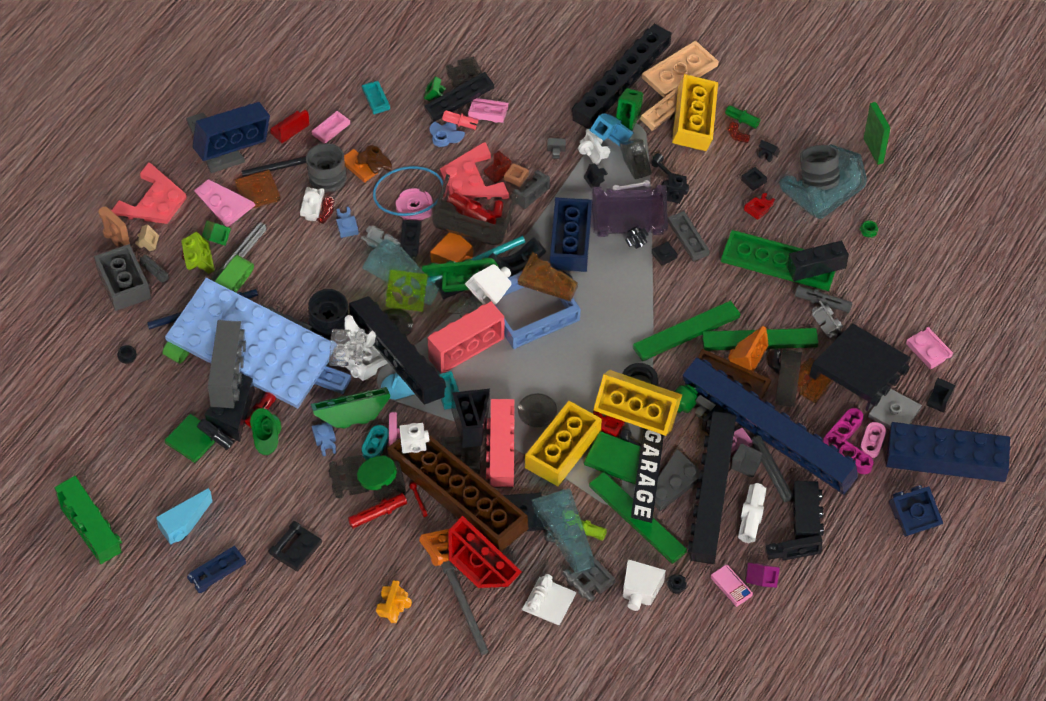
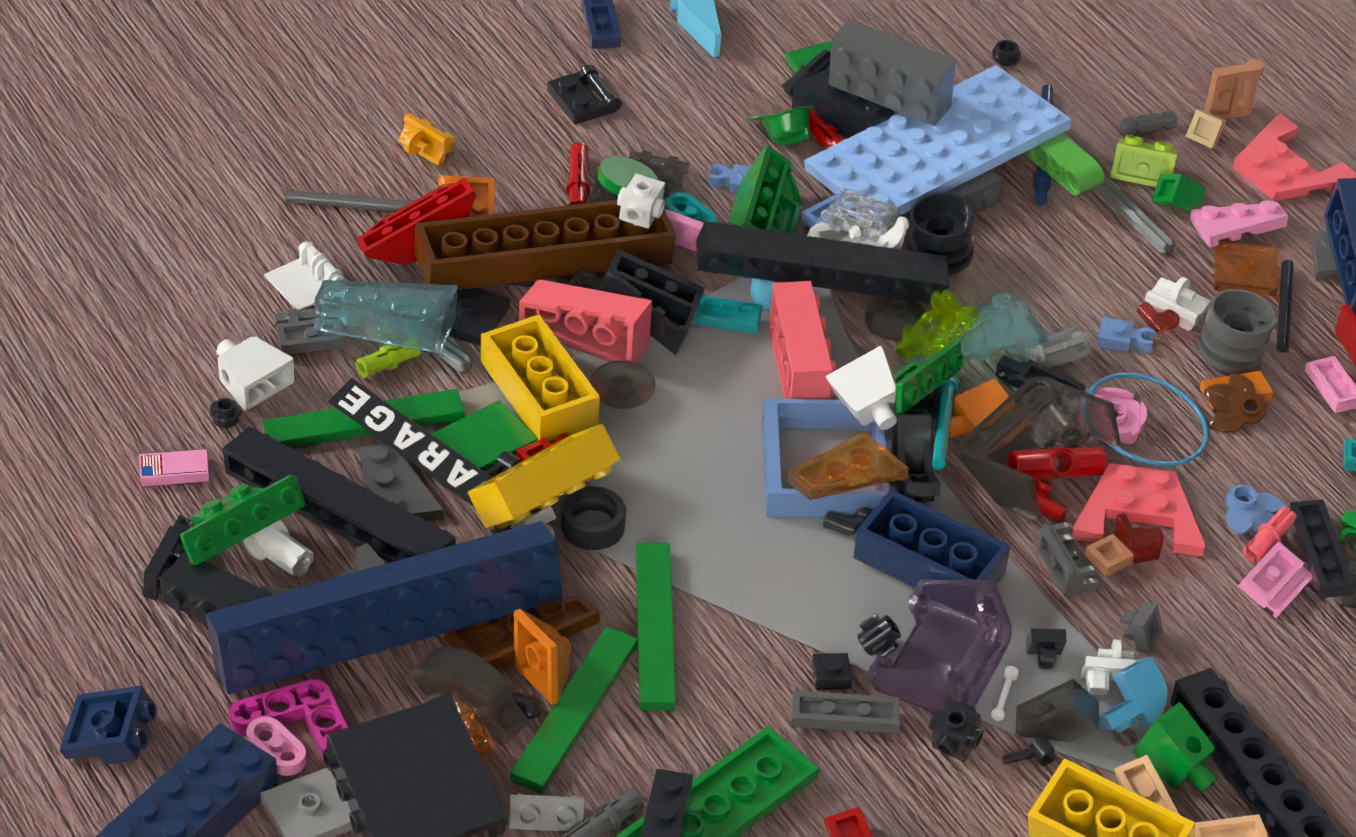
camera: 115 degrees right, 10 degrees down
(122, 277) = (1140, 76): dark grey brick -> none
(761, 519) = (239, 516): none -> green bracket
(762, 575) = (157, 499): magenta panel -> none

